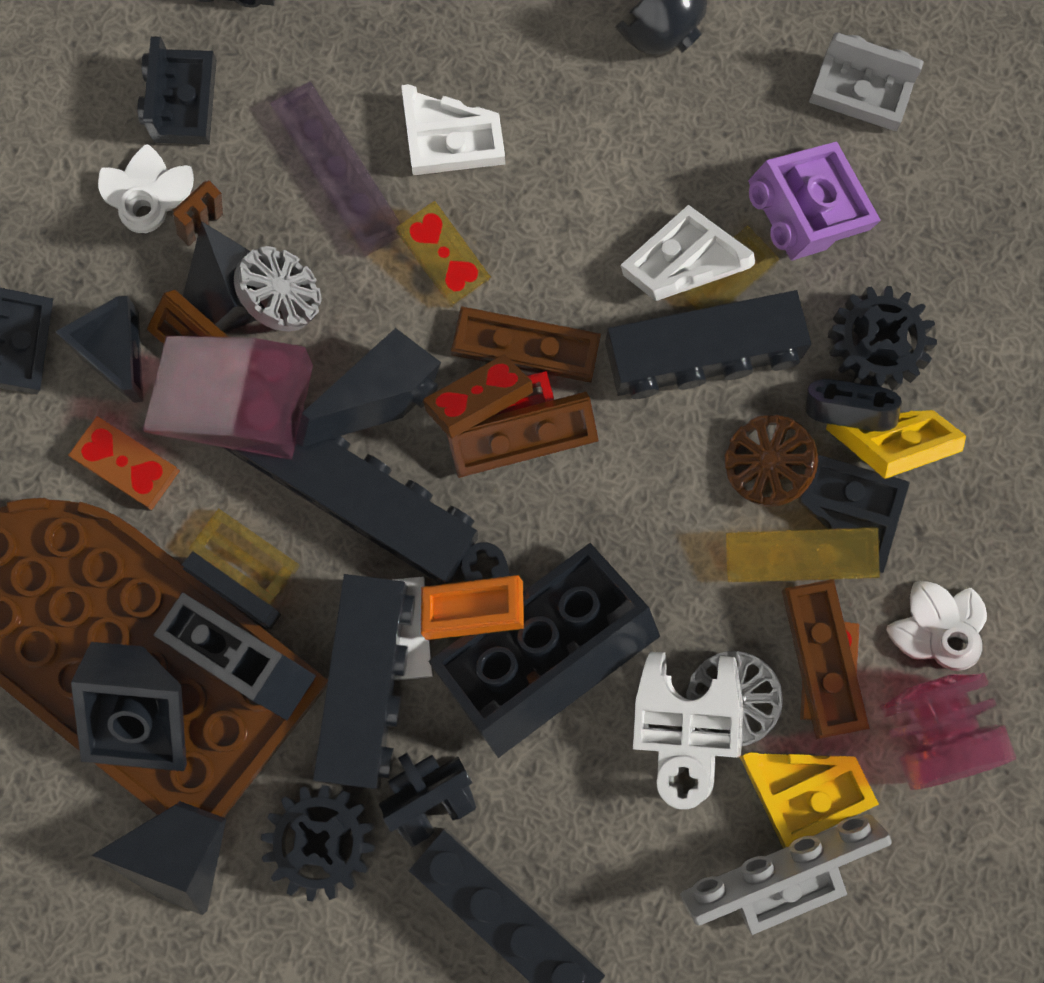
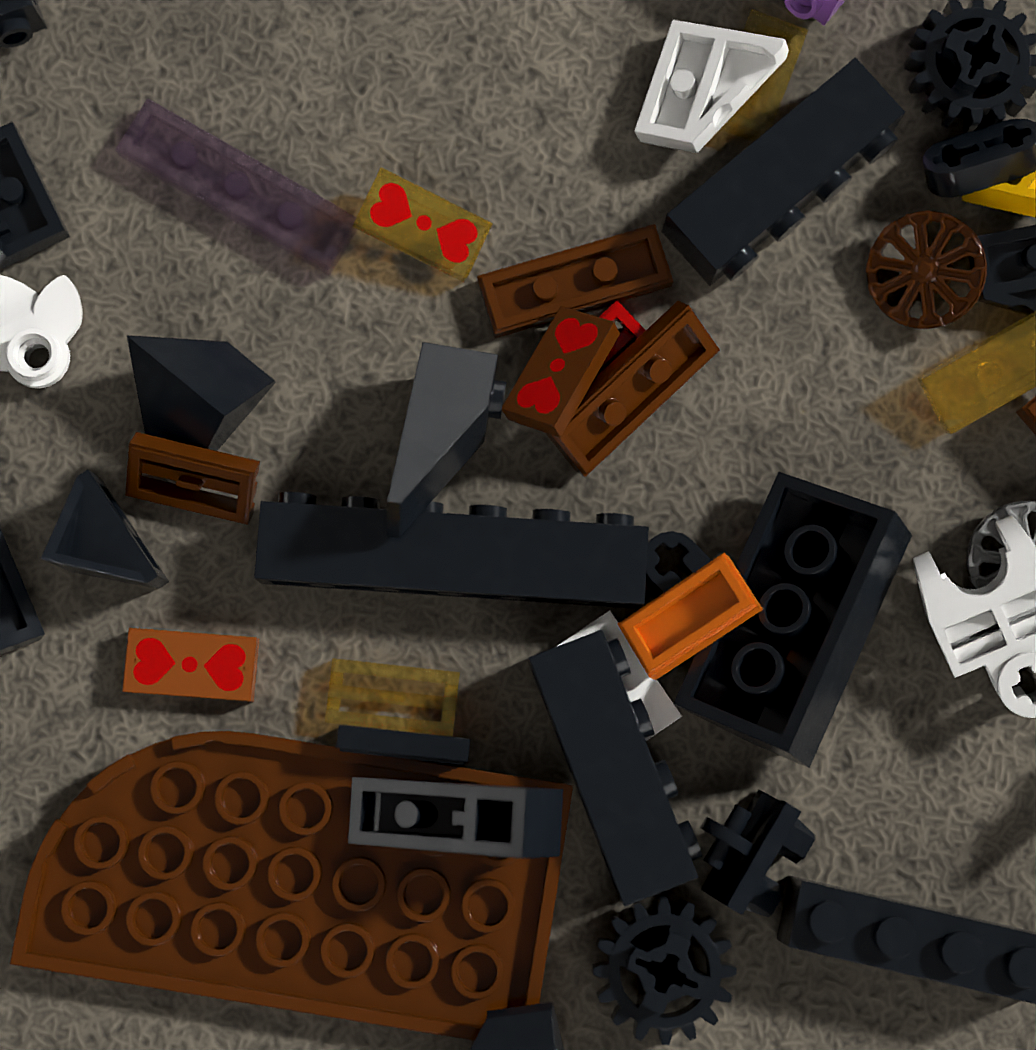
camera: 30 degrees left, 5 degrees up
(128, 709) = (374, 940): black slope -> none
(202, 202) = (114, 326): reddish brown tile -> none
(230, 393) = (278, 521): clear pink slope -> none
(277, 289) = (256, 368): light grey wheel -> none
(449, 134) = (349, 77): white wing -> none

